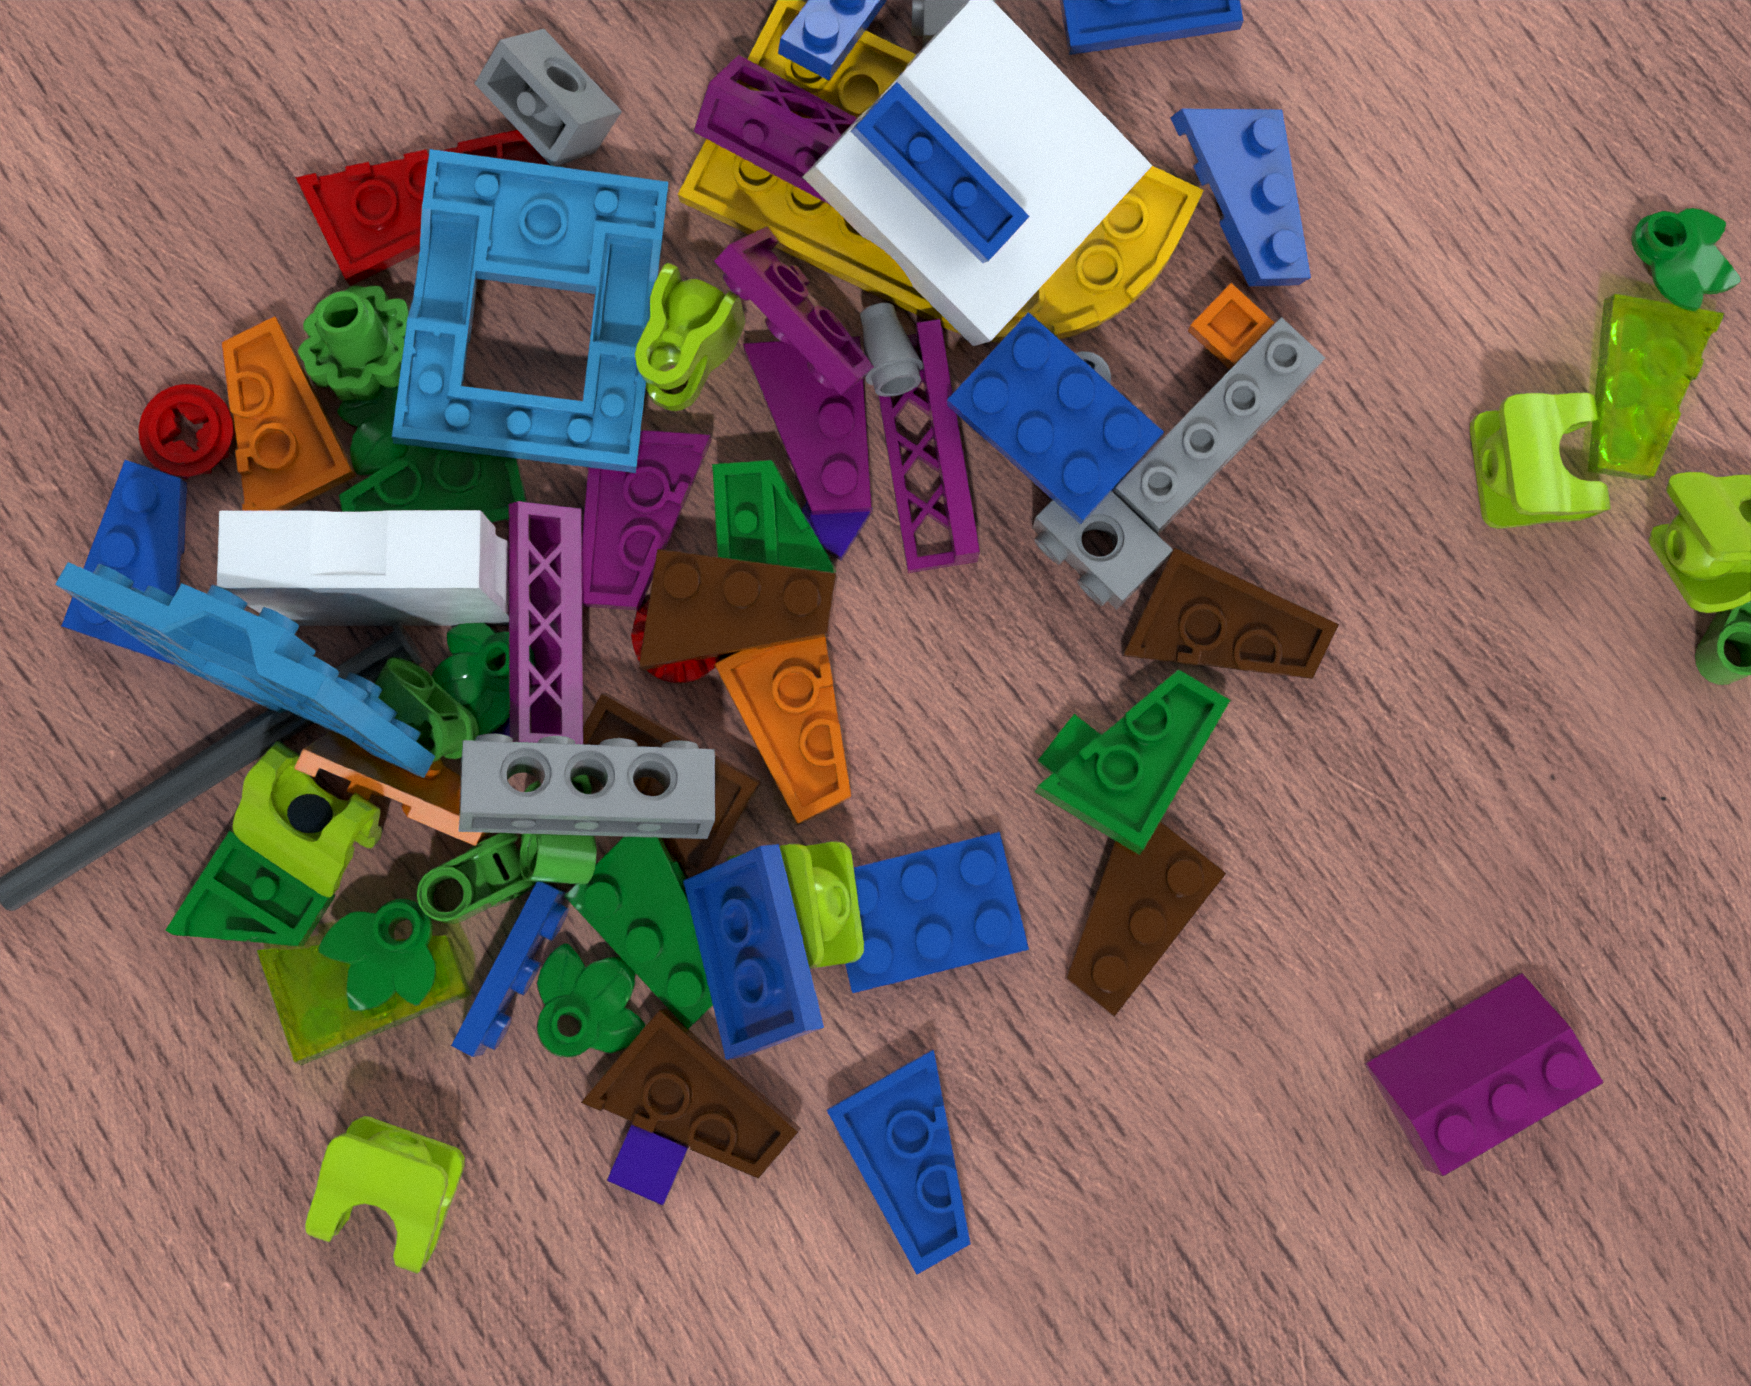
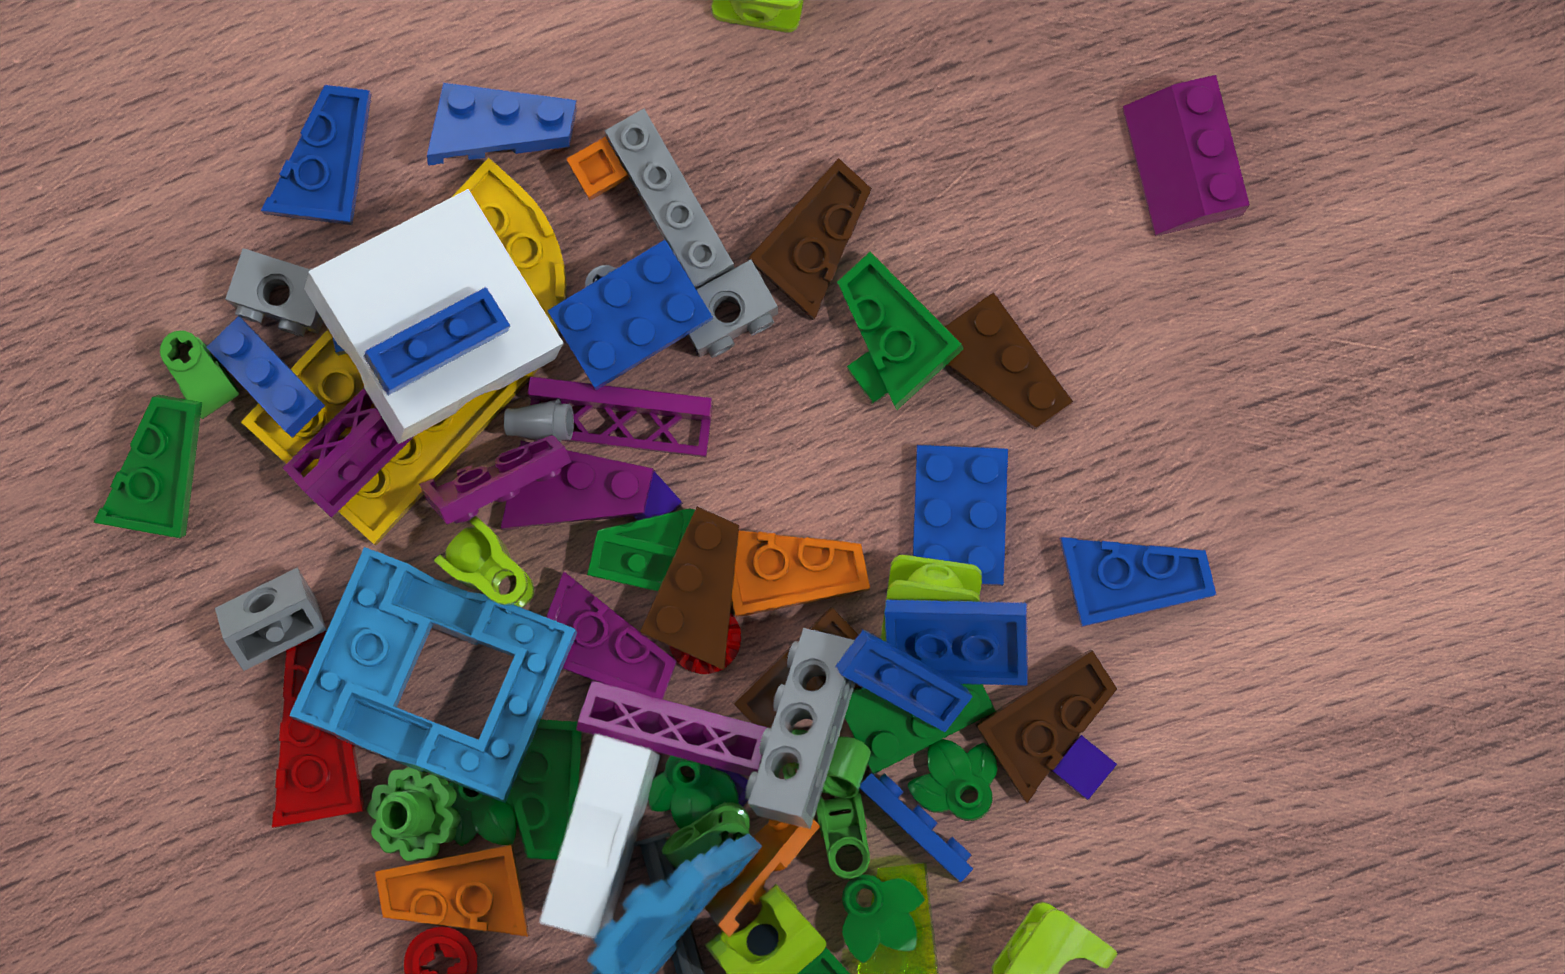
camera: 70 degrees left, 0 degrees up
(681, 896) = (903, 680): none -> blue plate

